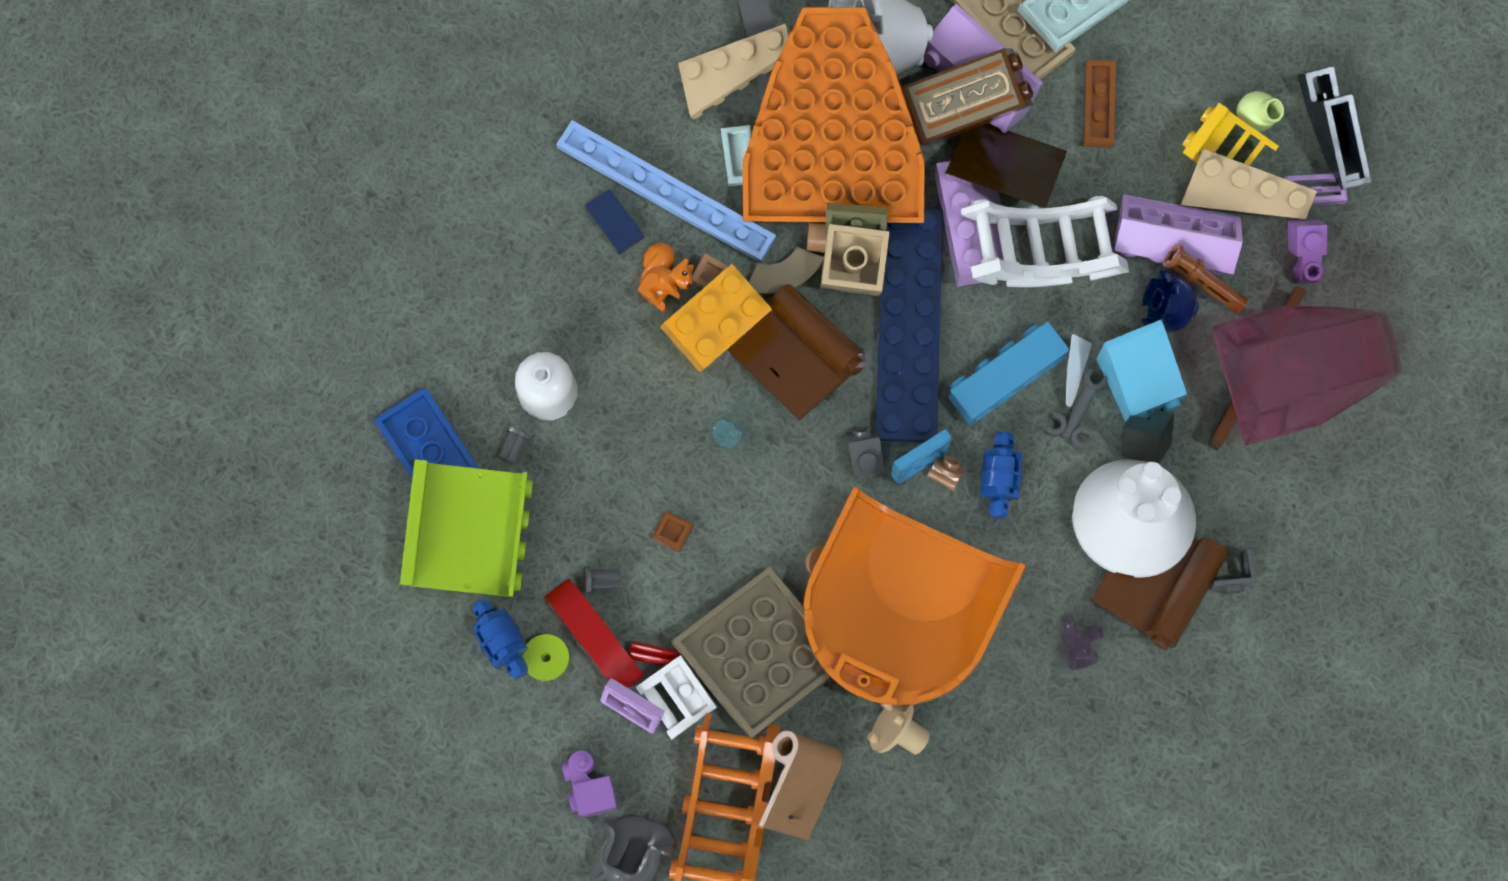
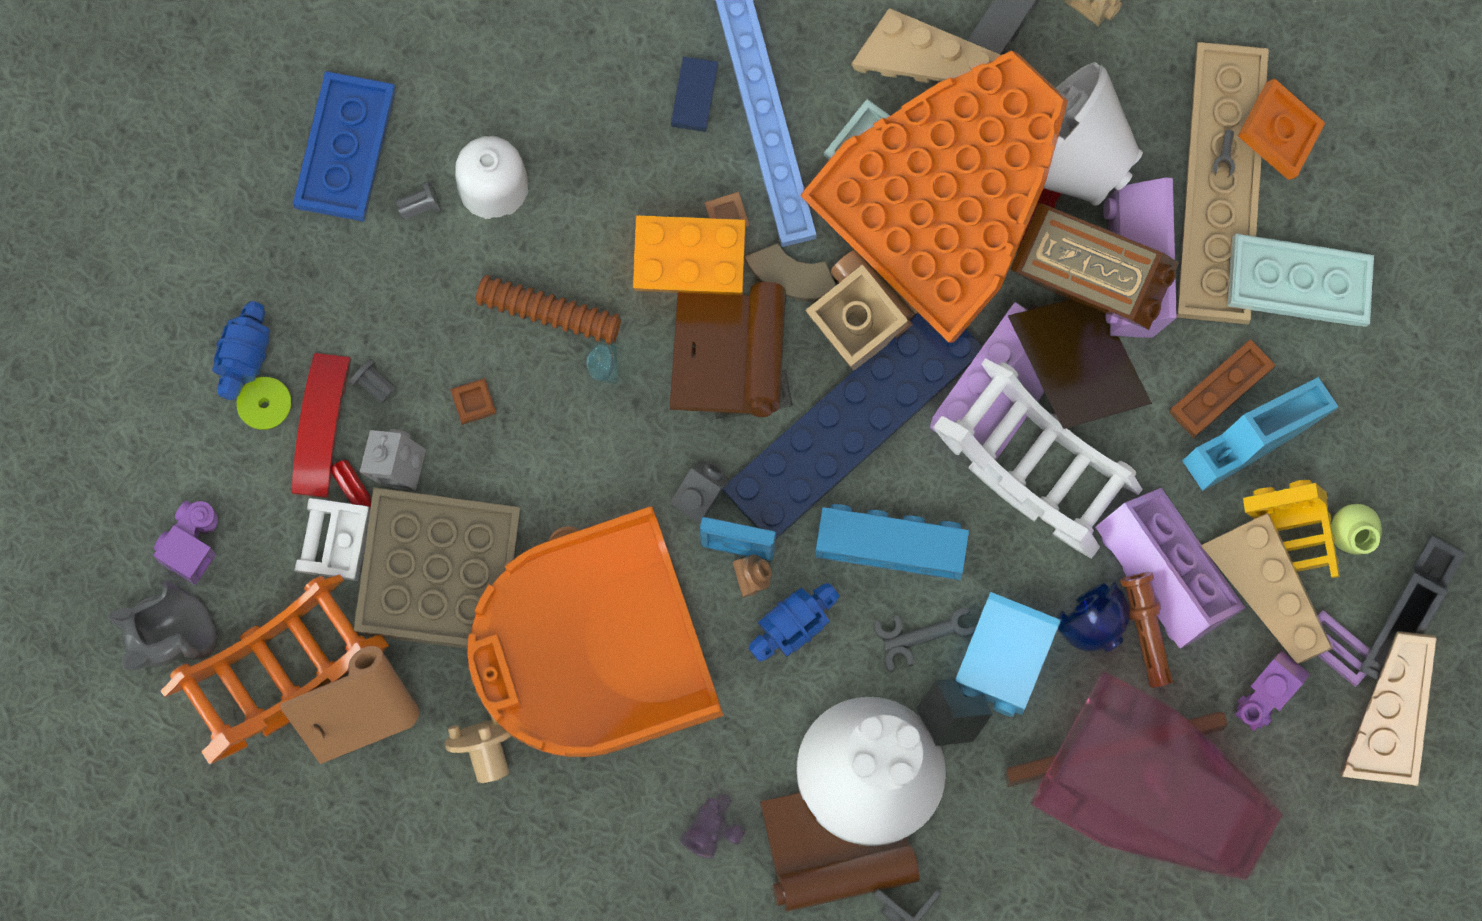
camera: 45 degrees right, 0 degrees up
(465, 529) = (304, 232): lime panel -> none
(631, 706) = (289, 510): lavender tile -> none
(658, 279) = (679, 178): orange animal -> none
(662, 432) = (548, 309): none -> dark orange piece
(664, 612) = (393, 459): none -> light grey head
(857, 216) = (893, 282): olive plate -> none
(1076, 363) = (962, 590): white sticker -> none
(1148, 108) = (1259, 433): none -> medium azure slope
(1391, 196) = (1394, 723): none -> tan wing

